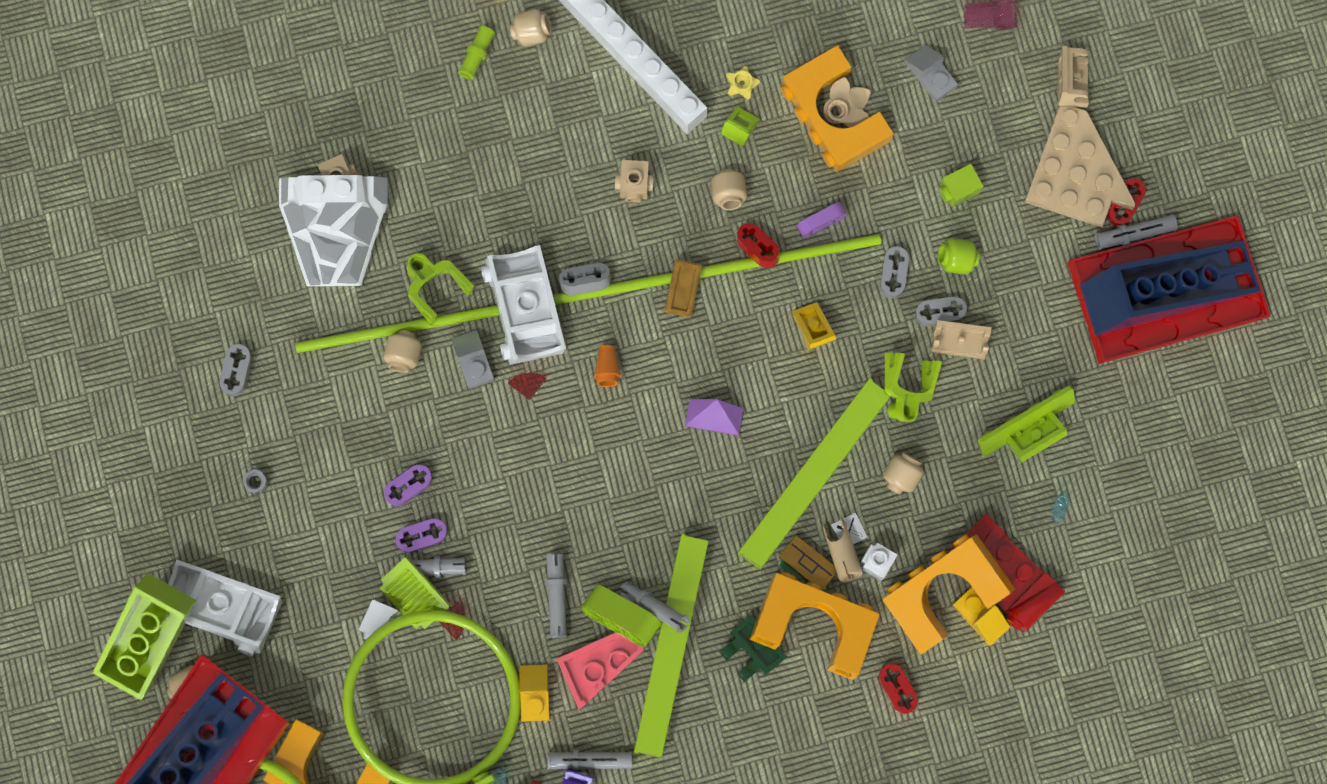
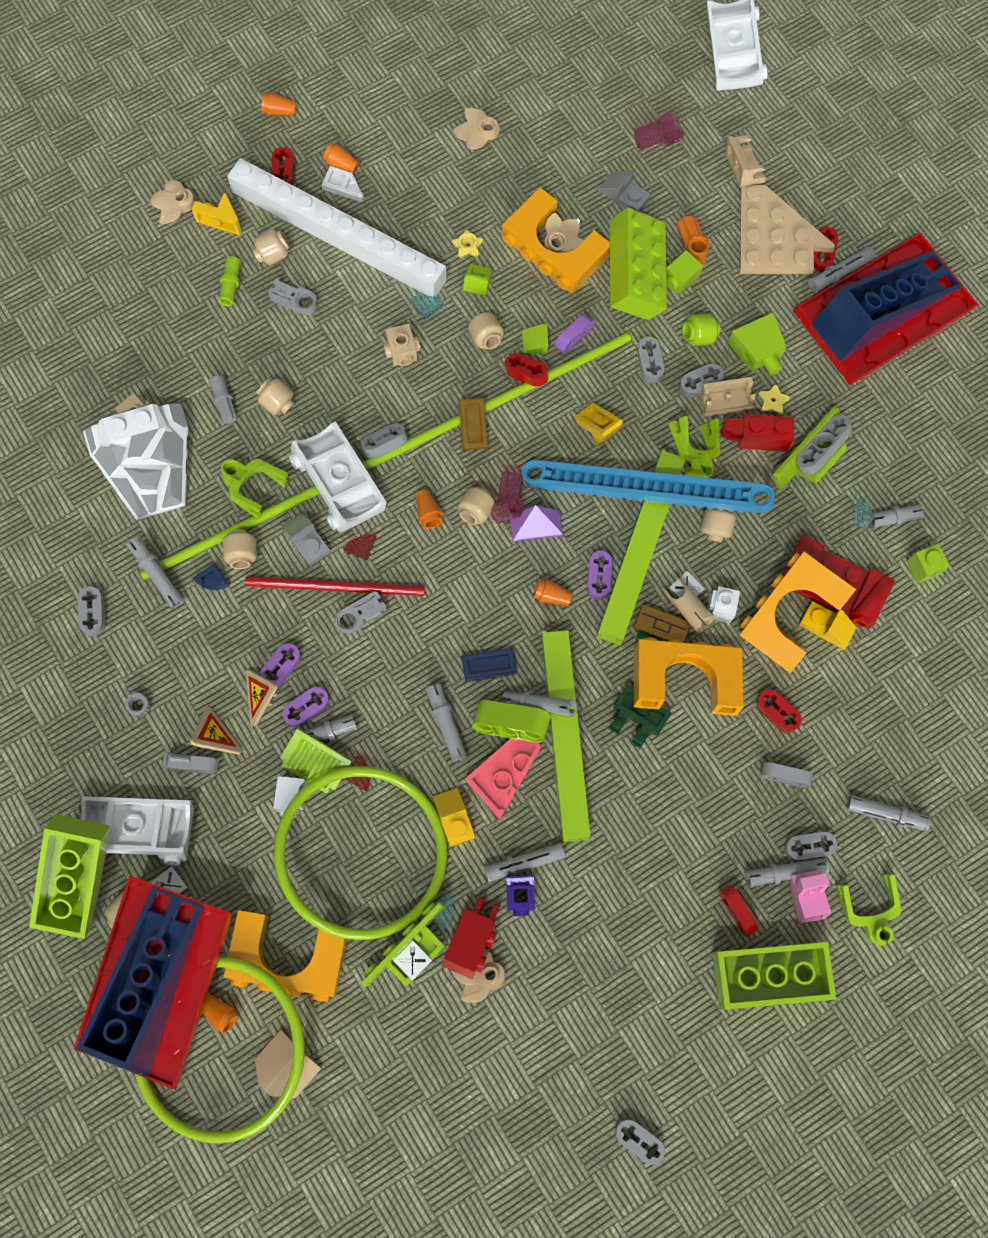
camera: 20 degrees left, 5 degrees down
(237, 669) = (170, 880): none -> white sticker
(291, 558) = (190, 763): none -> light grey piece
(310, 349) = (155, 572): none -> light grey pin
(321, 536) = (213, 734): none -> piece
(365, 372) = (211, 579): none -> dark blue tile
(379, 509) = (259, 695): none -> piece
(431, 183) = (223, 399): none -> light grey axle
(486, 197) = (275, 396): none -> tan head
(488, 418) = (334, 586): none -> red piece
(508, 453) = (363, 611): none -> light grey piece
(535, 88) = (291, 297): none -> light grey piece
(618, 549) = (488, 665): none -> dark blue tile
(657, 378) = (476, 505): none -> tan head
(676, 139) = (426, 305): none -> clear light blue tile
(691, 386) = (508, 502): none -> clear pink piece
(705, 494) = (551, 593): none -> orange cone
(756, 488) = (605, 575): none -> medium lavender beam
(778, 213) = (535, 339): none -> lime slope
(839, 415) = (649, 486): none -> dark azure gear
(882, 756) = (786, 775): none -> light grey beam
(913, 164) = (638, 264): none -> lime brick
(981, 389) = (760, 432): none -> red hinge
(985, 151) = (693, 238): none -> orange piece
(1004, 361) = (768, 405): none -> light yellow plate
(1016, 291) = (759, 344): none -> lime torso
(1040, 435) = (823, 454): none -> light grey beam
(1095, 522) = (896, 516): none -> light grey pin
(1107, 584) = (928, 563): none -> lime brick

